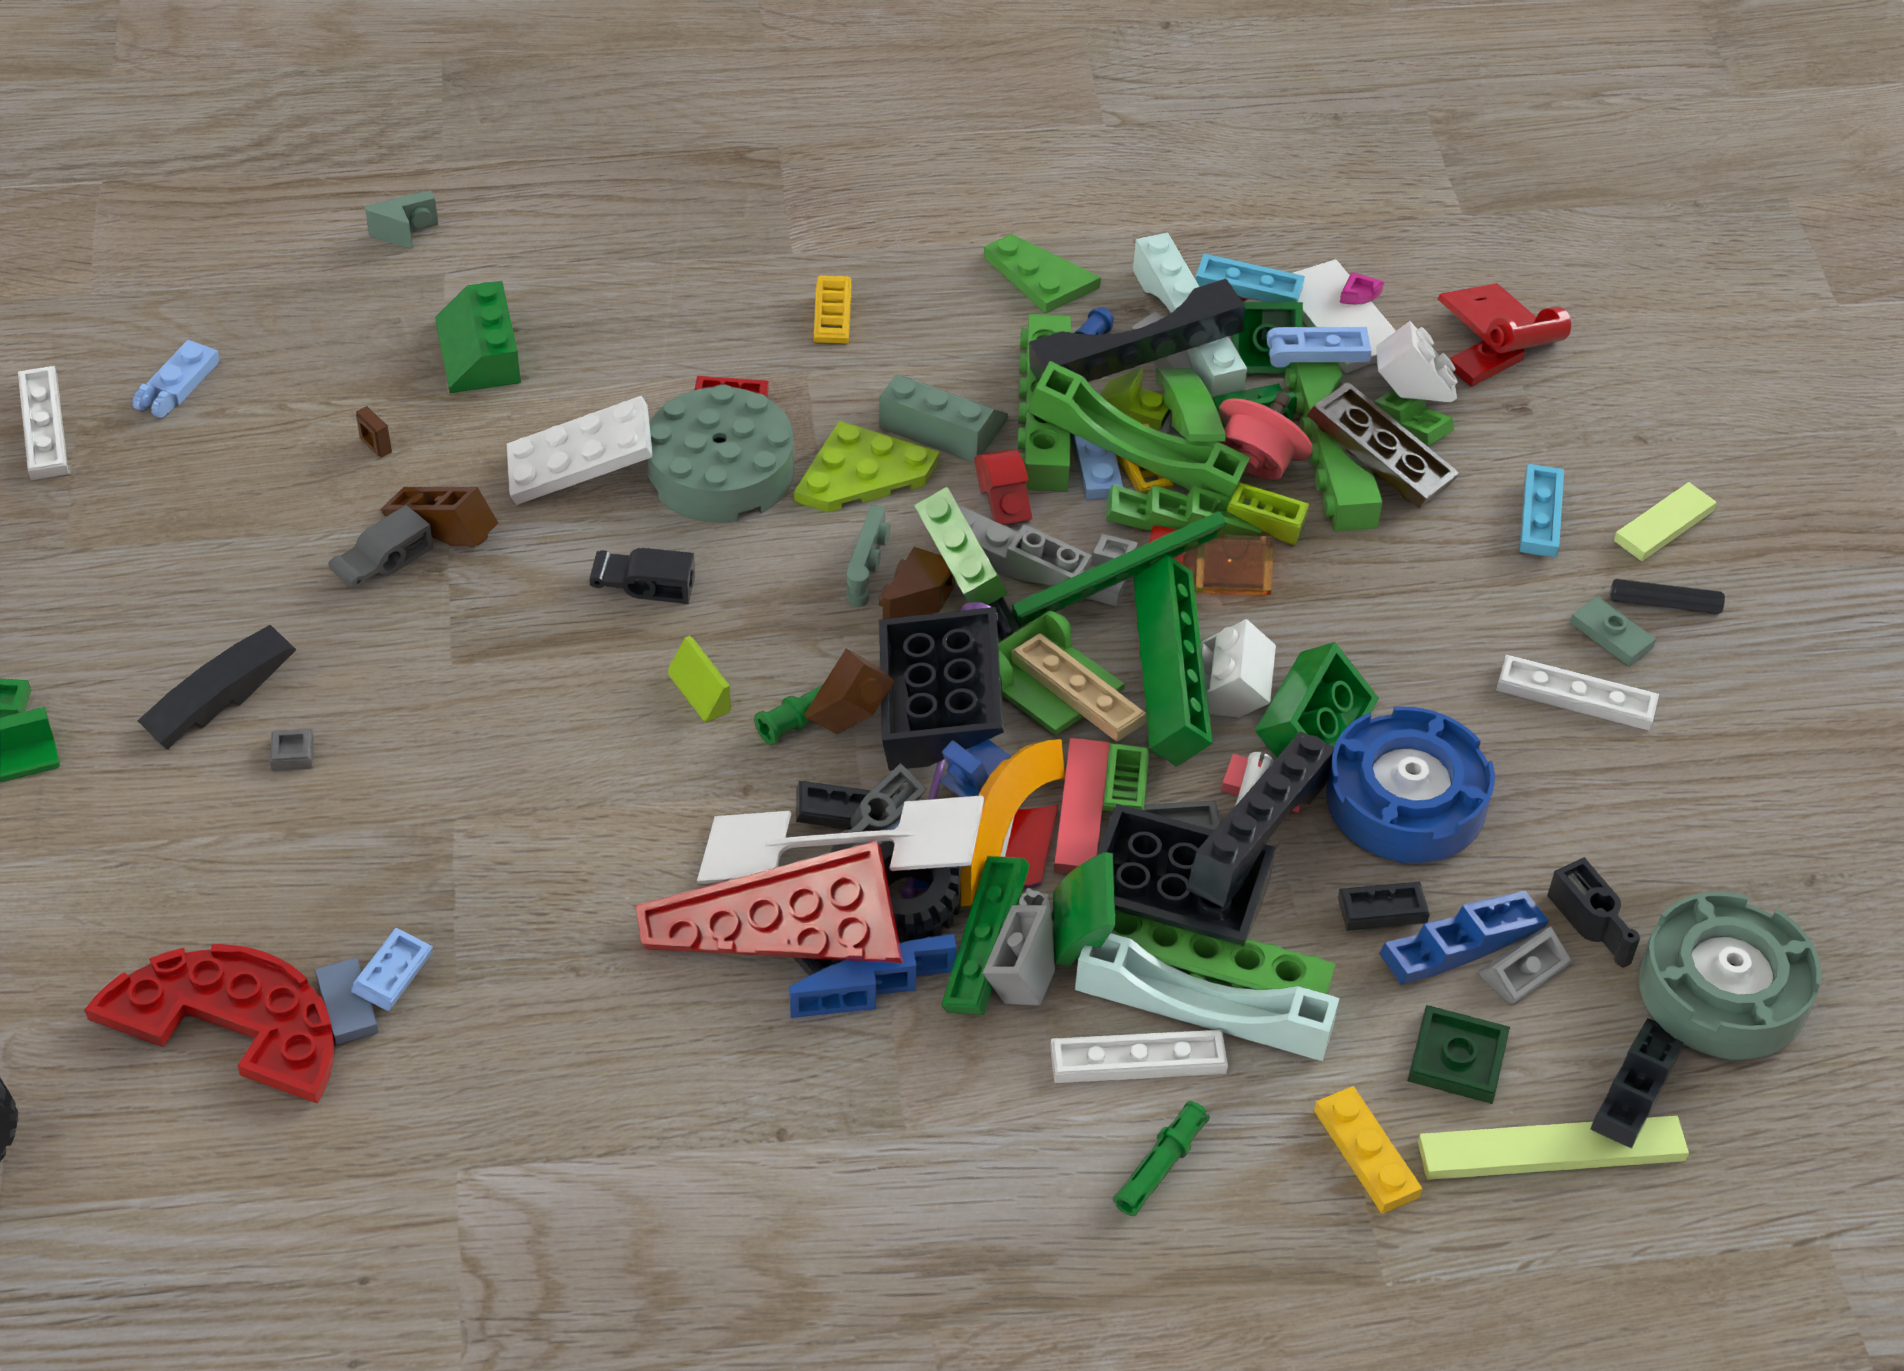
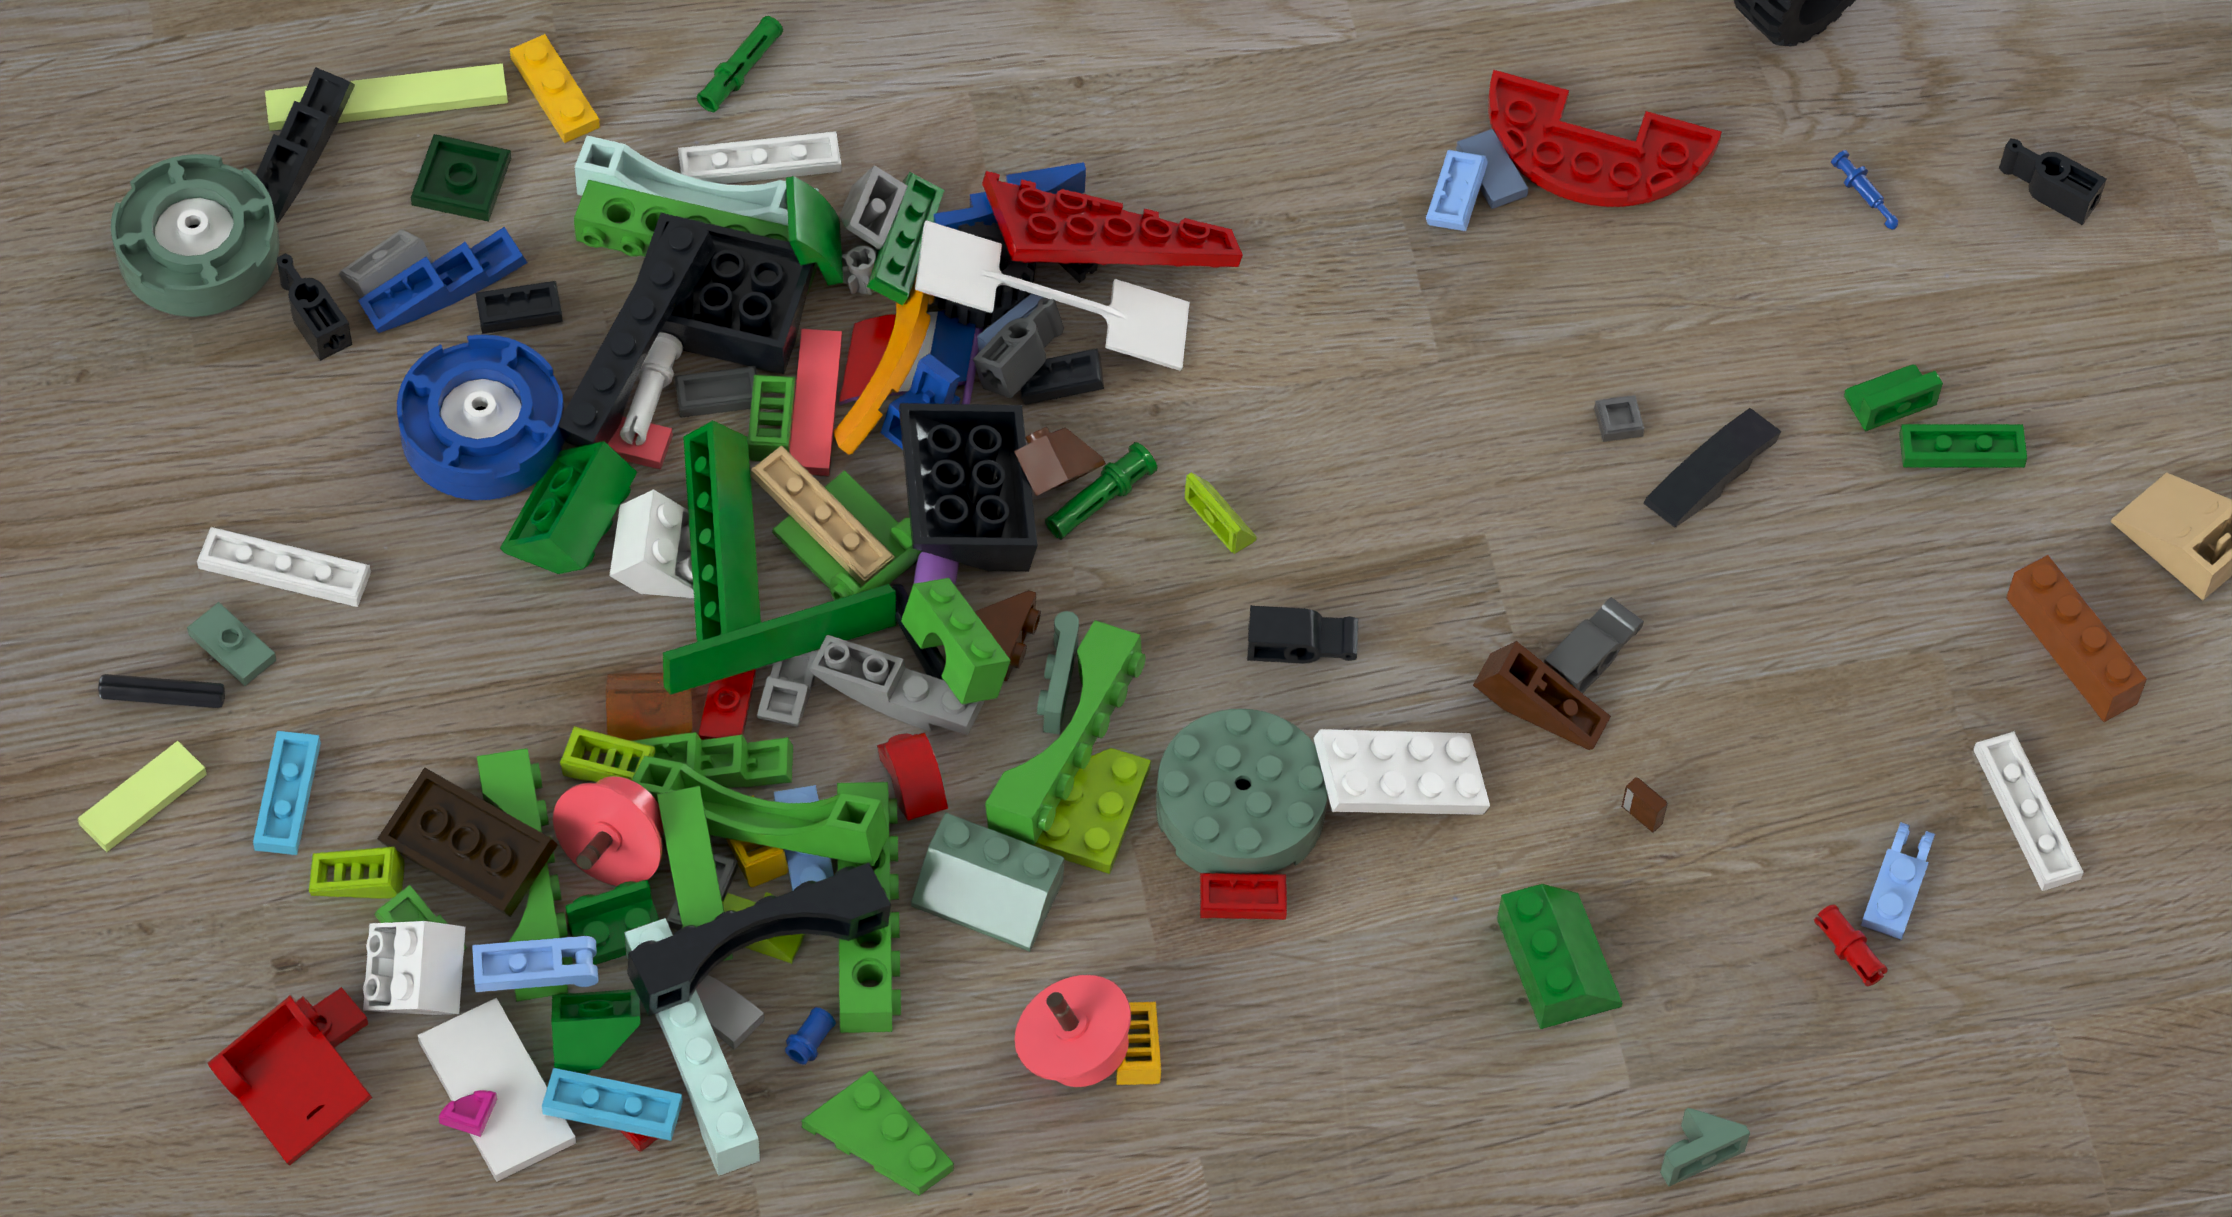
camera: 175 degrees right, 10 degrees up
(235, 334) = (1850, 945): none -> red pin
(883, 289) = (1075, 1031): none -> coral piece
(903, 443) = (1029, 794): none -> bright green arch
(1473, 454) = (357, 887): none -> lime slope

